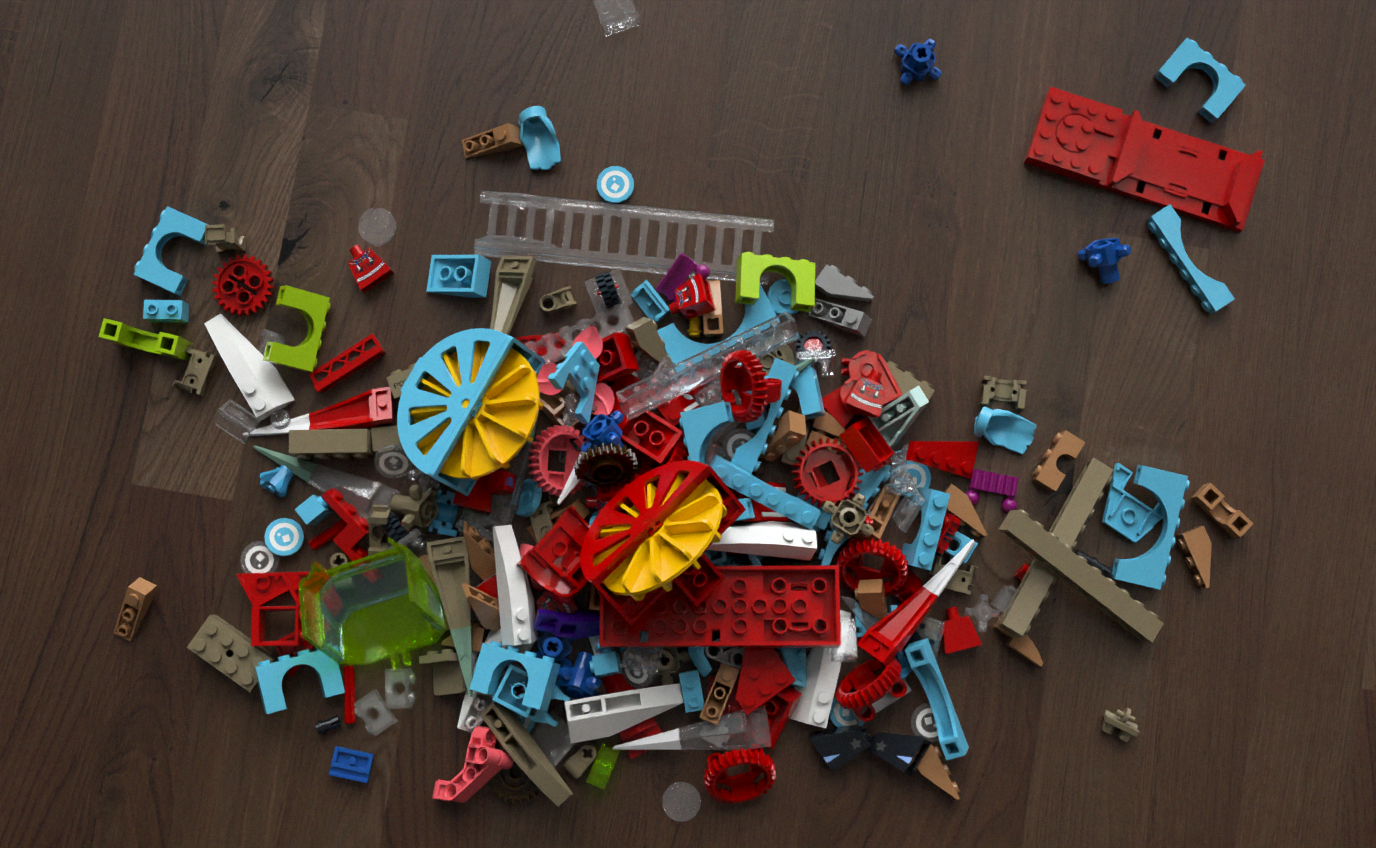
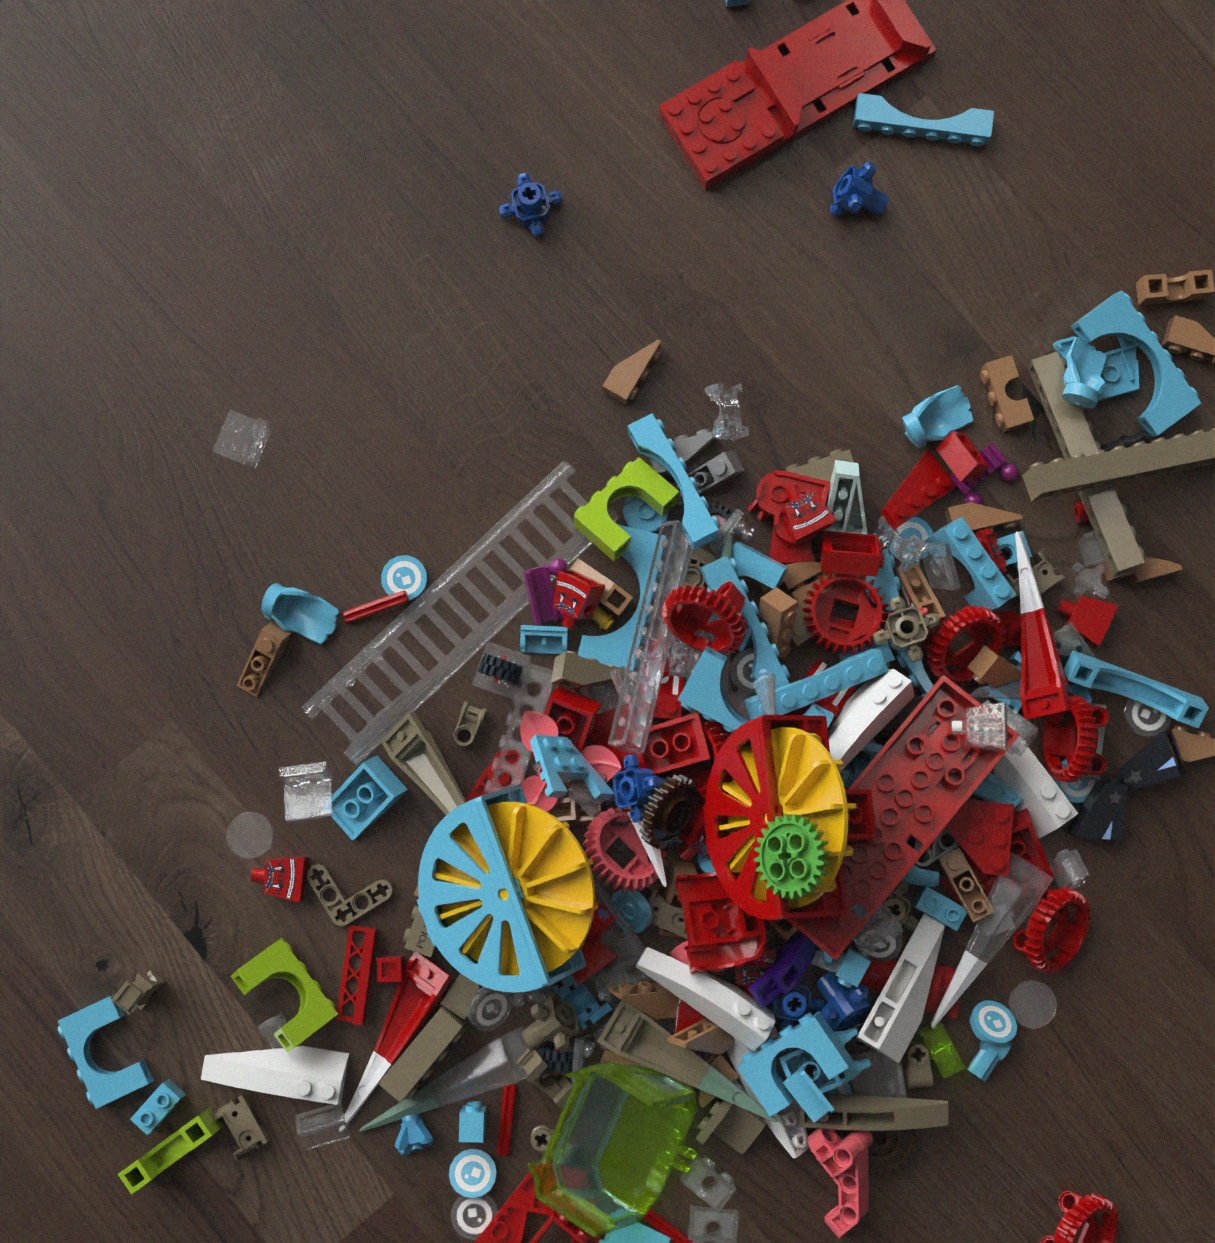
camera: 50 degrees left, 0 degrees up
(233, 299) = (191, 991): red gear -> none
(280, 419) = (356, 1082): clear tile -> none
(356, 529) = (525, 1098): red bracket -> none
(366, 379) = (389, 968): none -> red panel
(382, 316) = (340, 901): none -> dark tan beam
(432, 237) = (307, 791): none -> clear bracket
(502, 700) = (808, 1095): none -> medium azure panel
(582, 182) = (376, 606): none -> red axle
(631, 799) = (986, 1059): none -> medium azure piece
(634, 554) = (792, 856): none -> bright green gear
(647, 785) = (993, 1023): none -> medium azure tile
(731, 461) = (766, 691): none -> clear bar
(785, 752) = (1069, 869): none -> clear brick
(825, 617) = (984, 727): none -> clear torso
(830, 261) = (650, 441): none -> medium azure arch
(860, 213) = (627, 374): none -> medium nougat slope
(886, 299) = (728, 423): none -> clear piece
(992, 465) = (962, 457): none -> red hinge
(1003, 391) = (901, 388): dark tan piece -> none
(1112, 497) = (1083, 374): none -> medium azure hair

